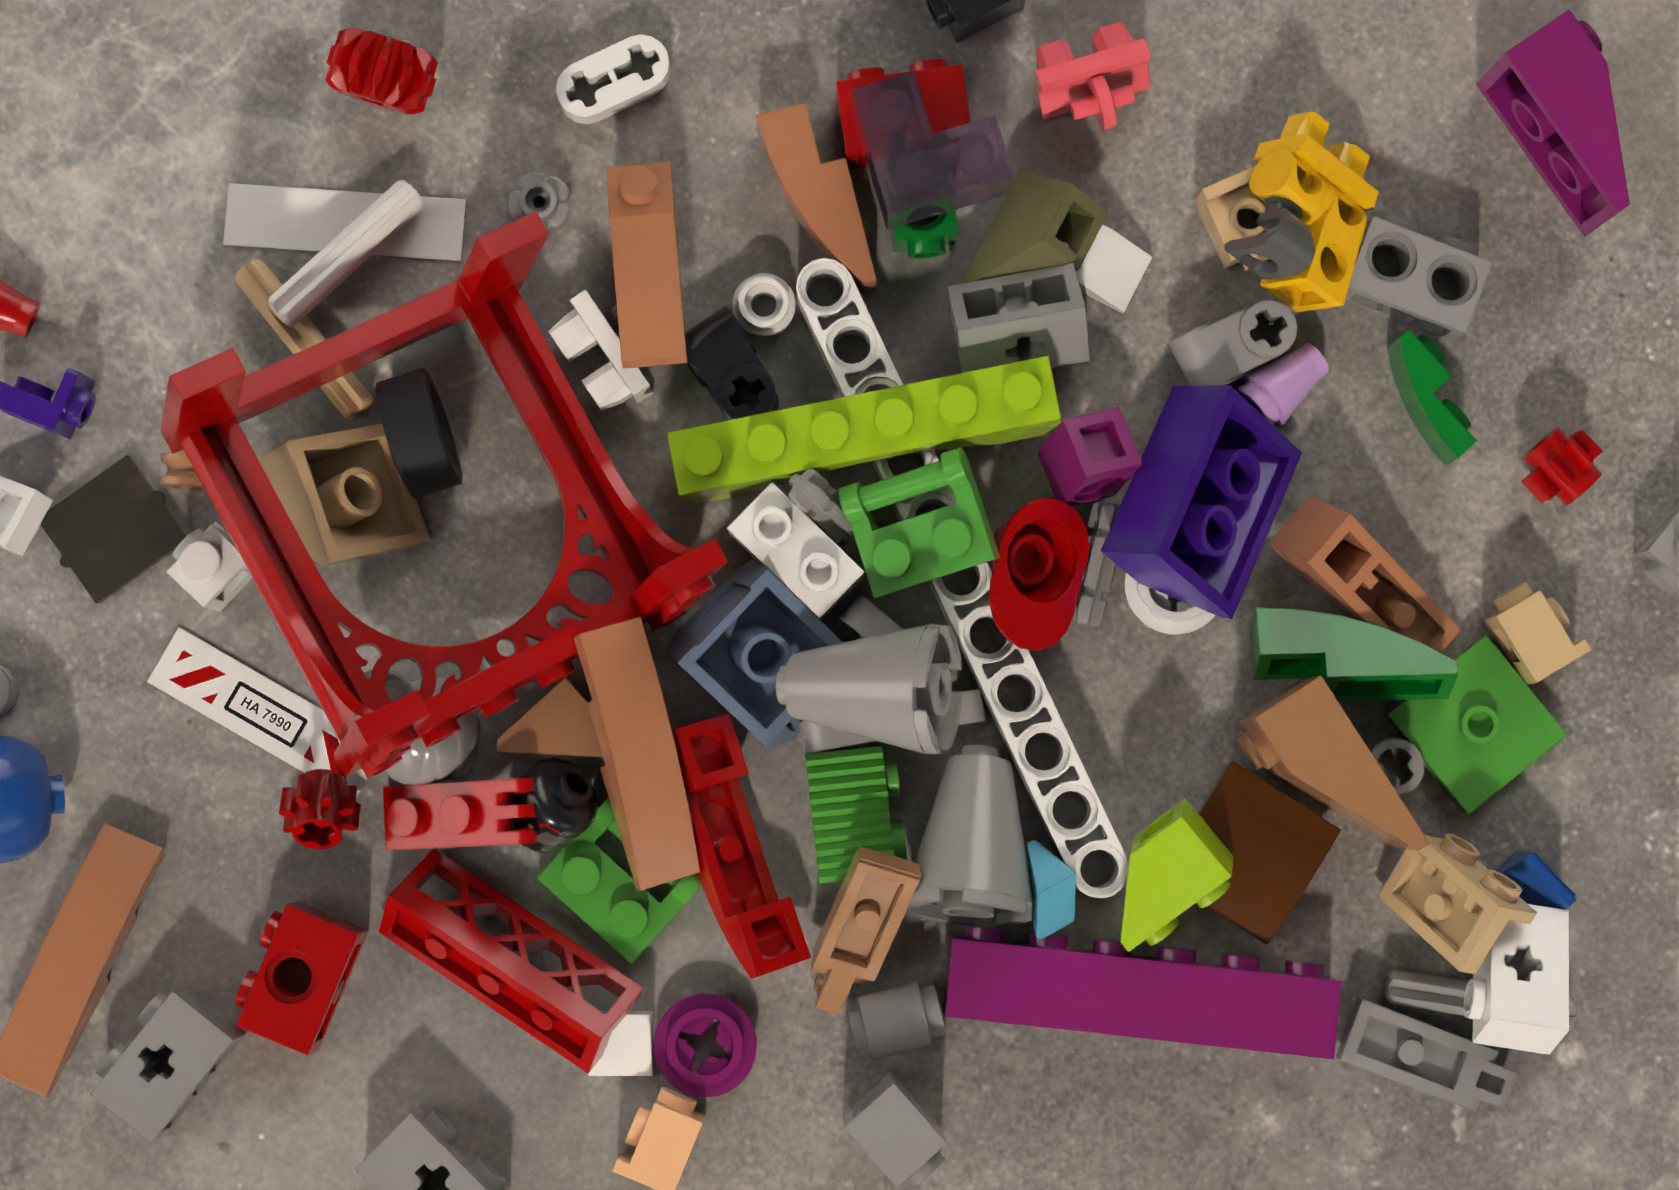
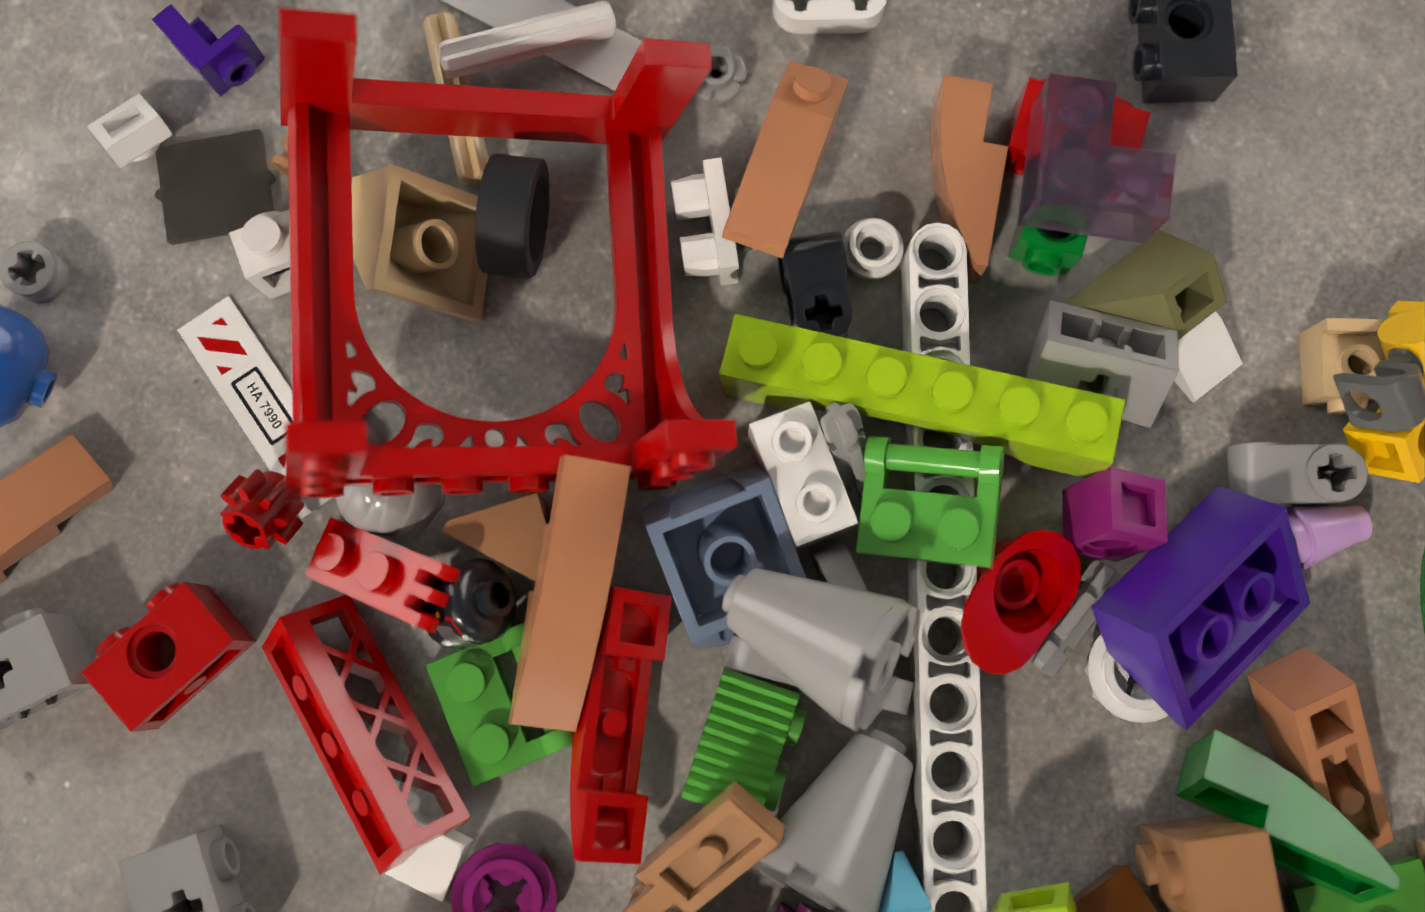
camera: 30 degrees right, 5 degrees down
(1094, 81) = (1259, 182): coral hips -> none

